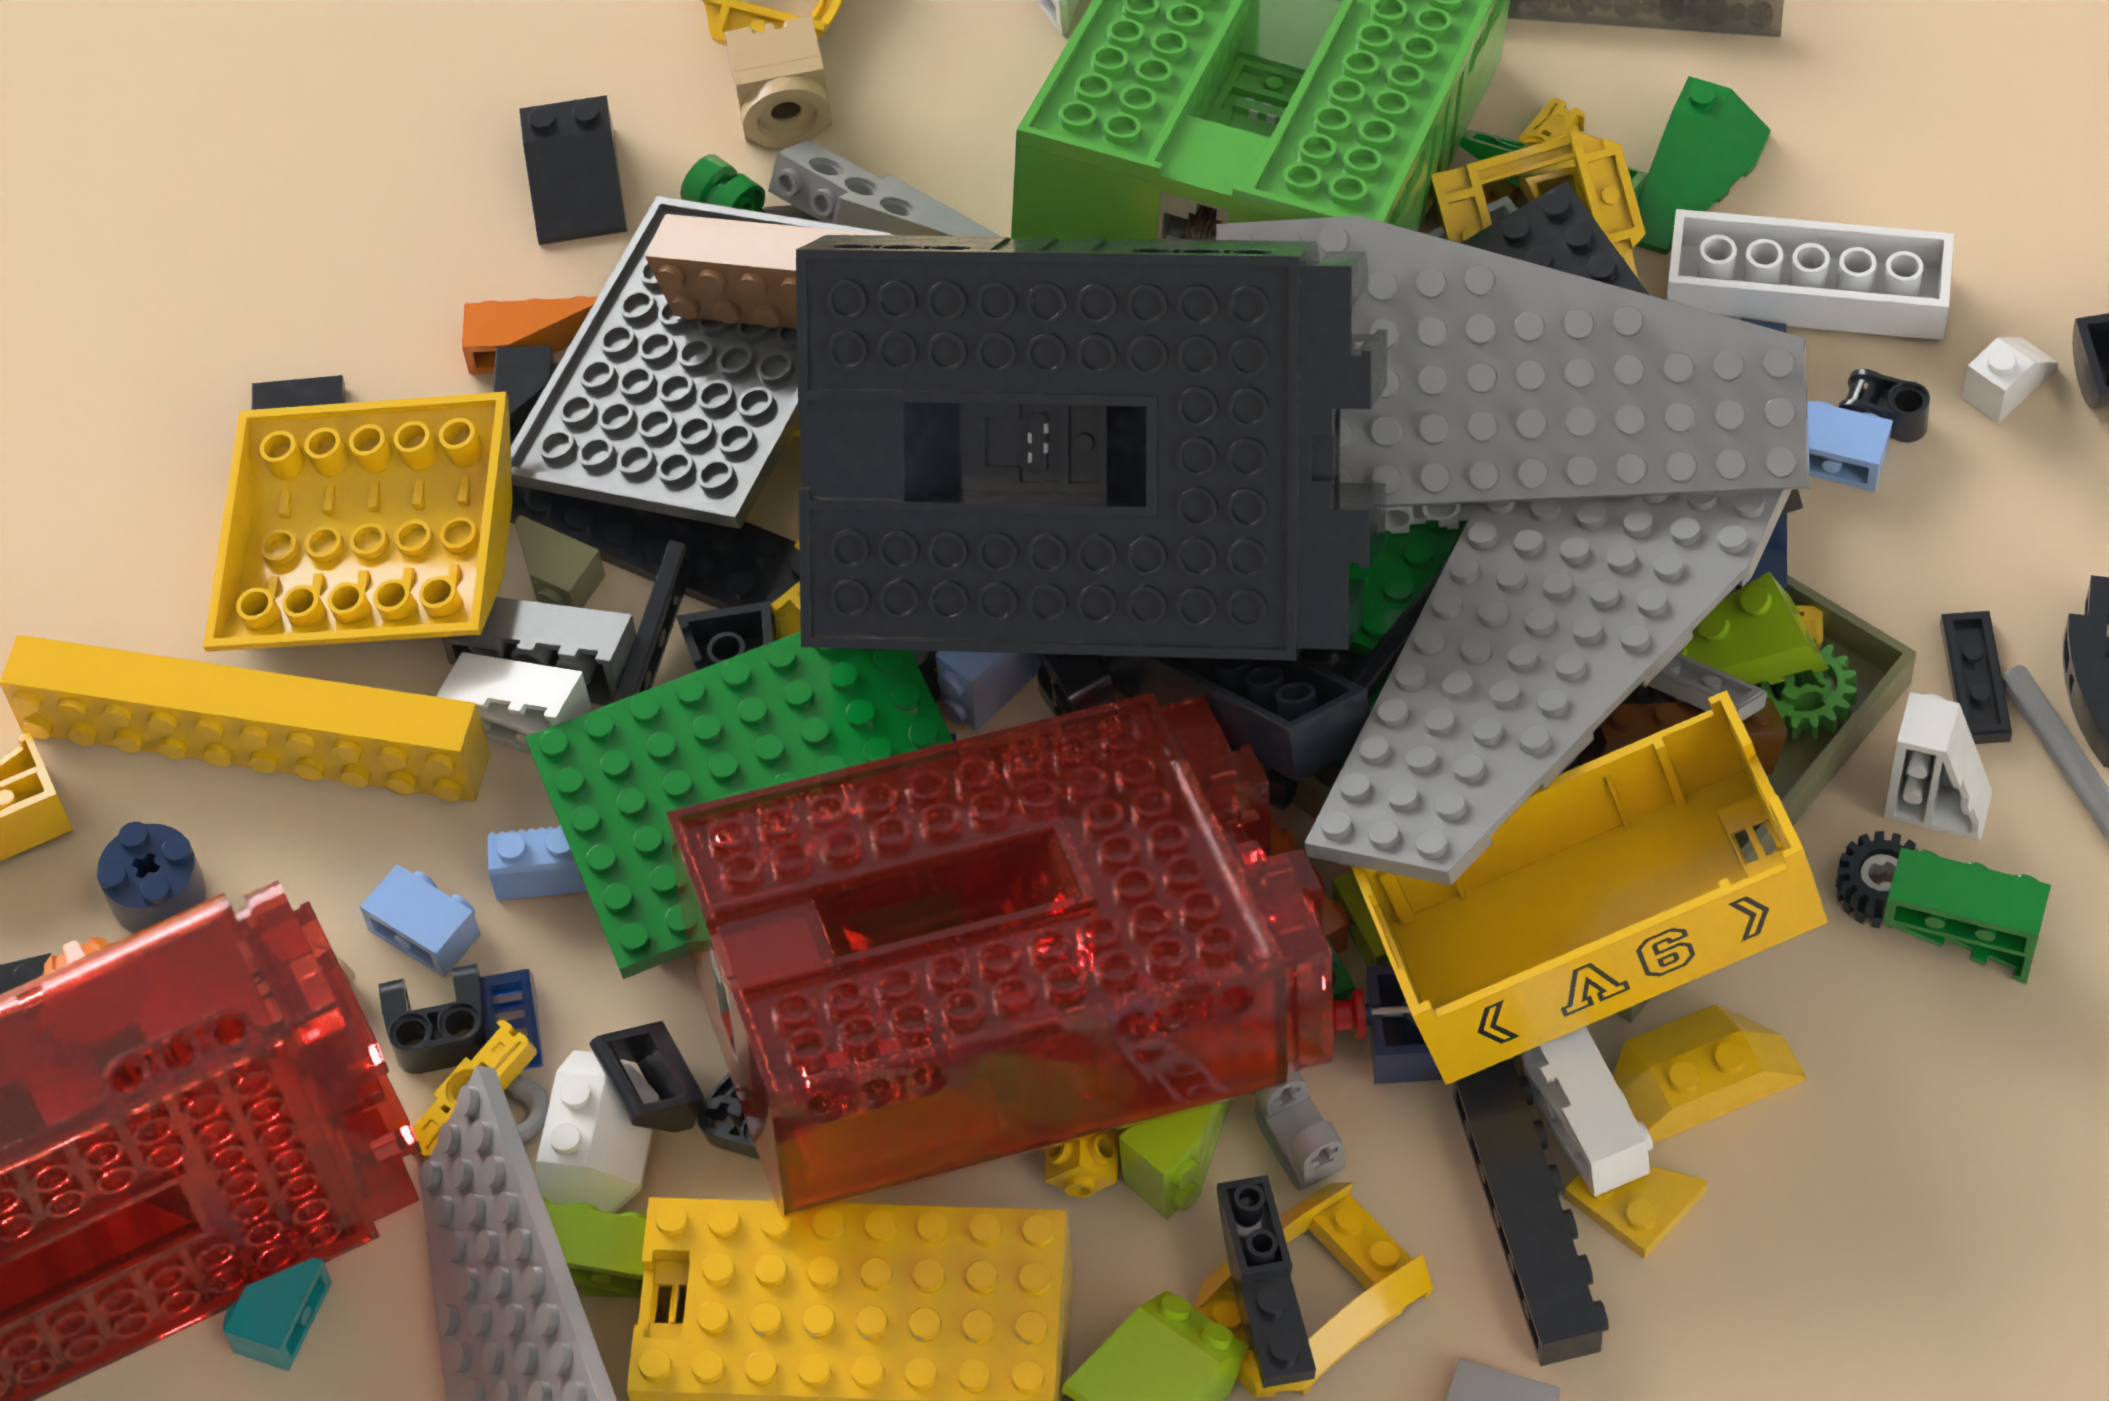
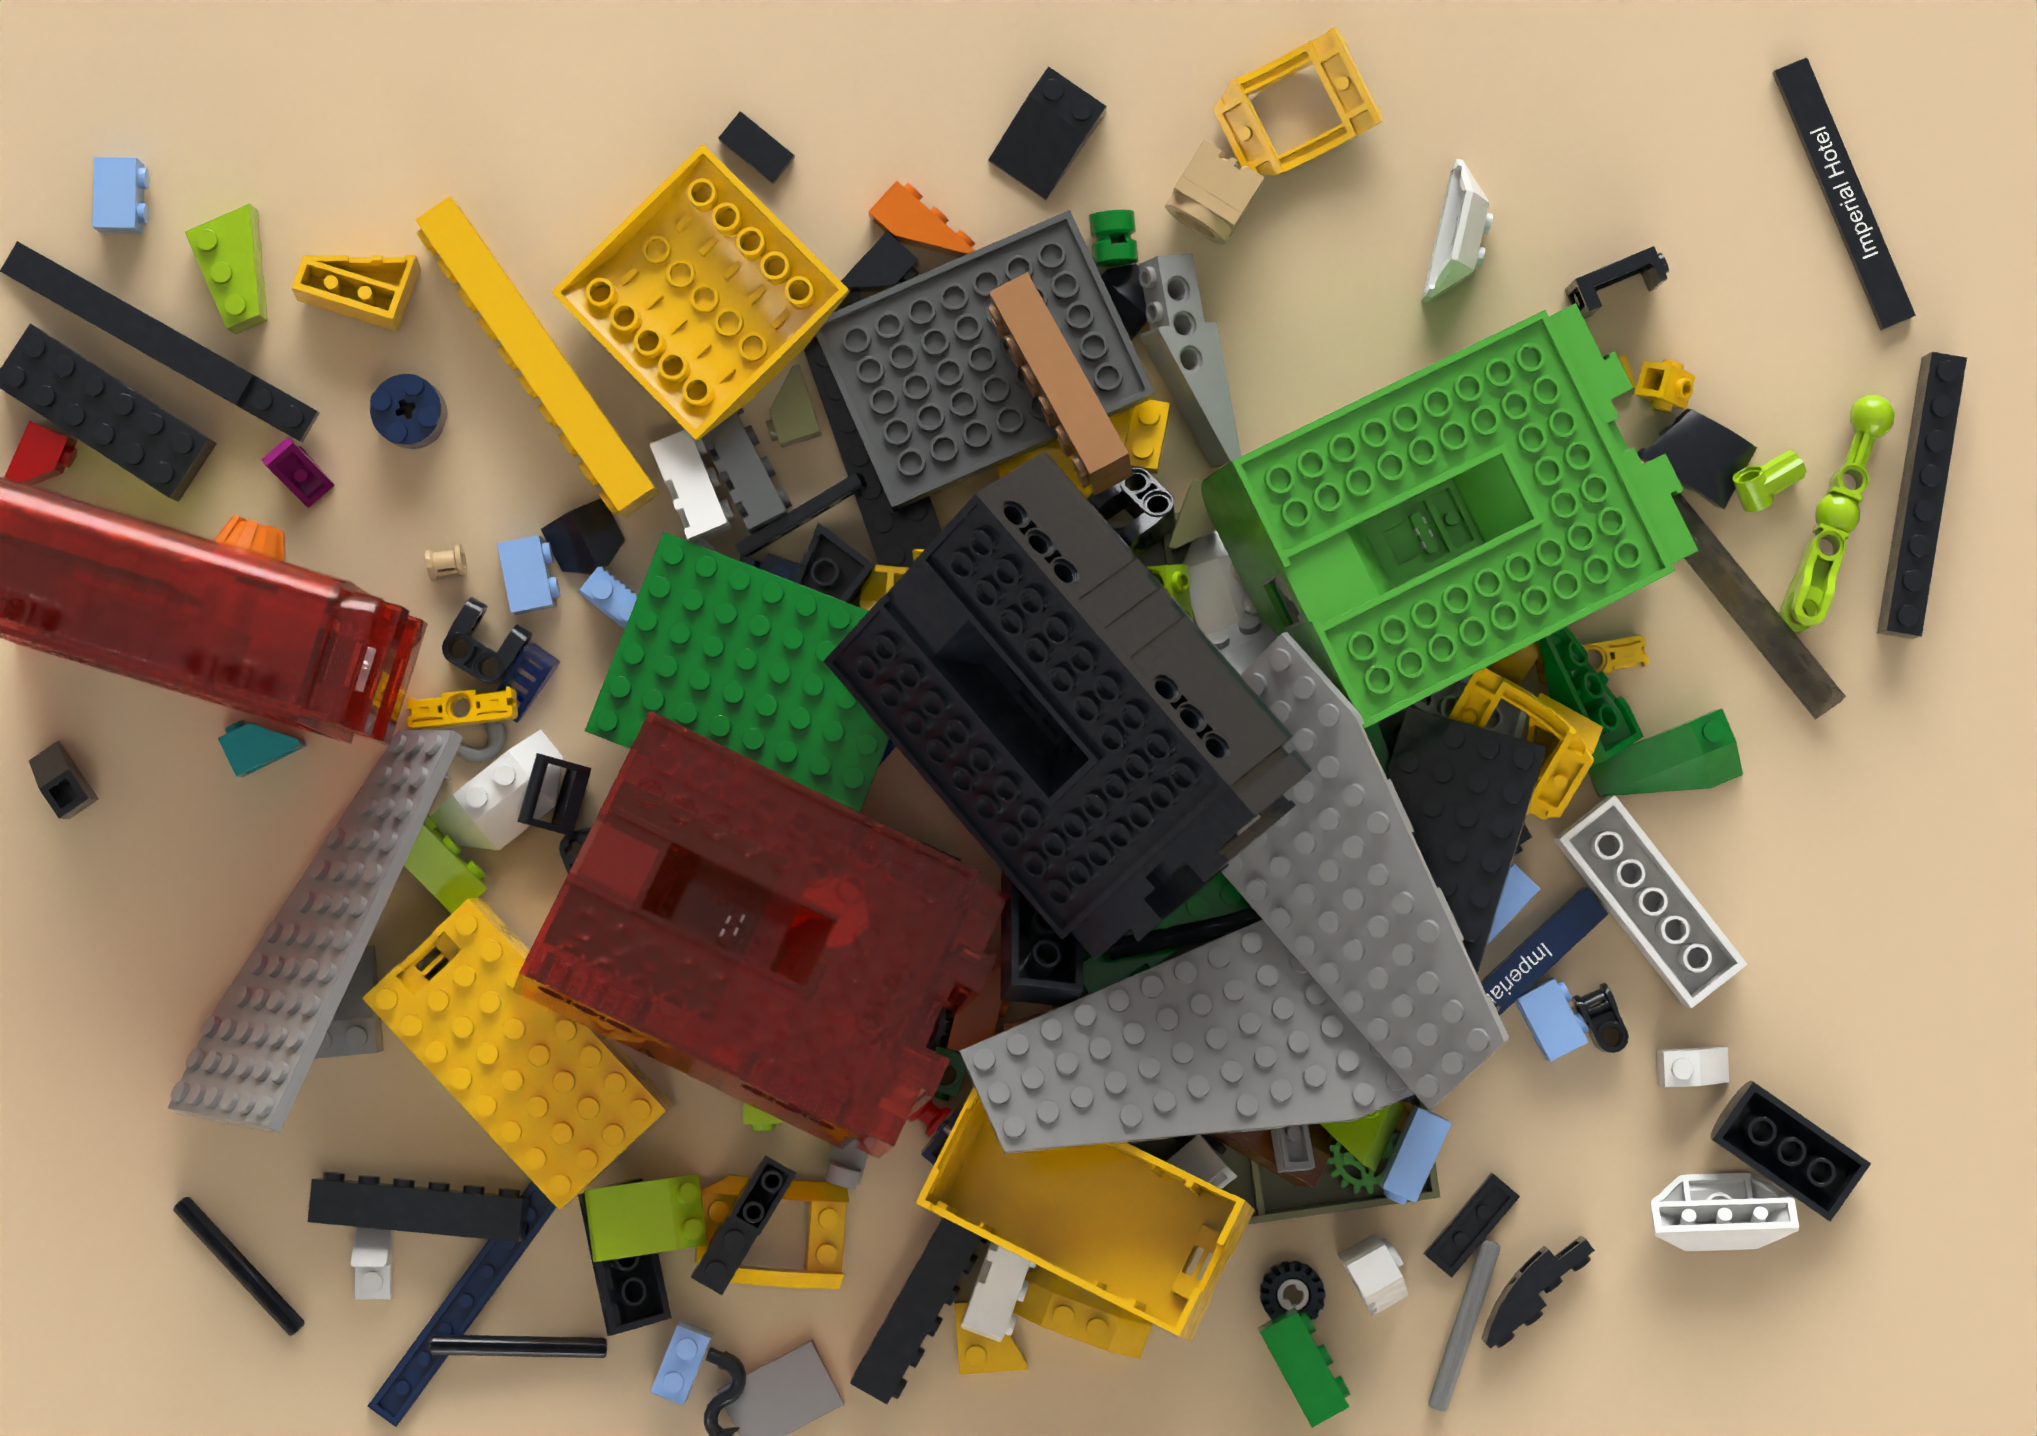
camera: 35 degrees right, 30 degrees up
(448, 845) = (584, 538): none -> black slope
(1845, 611) = (1414, 1155): none -> light blue brick

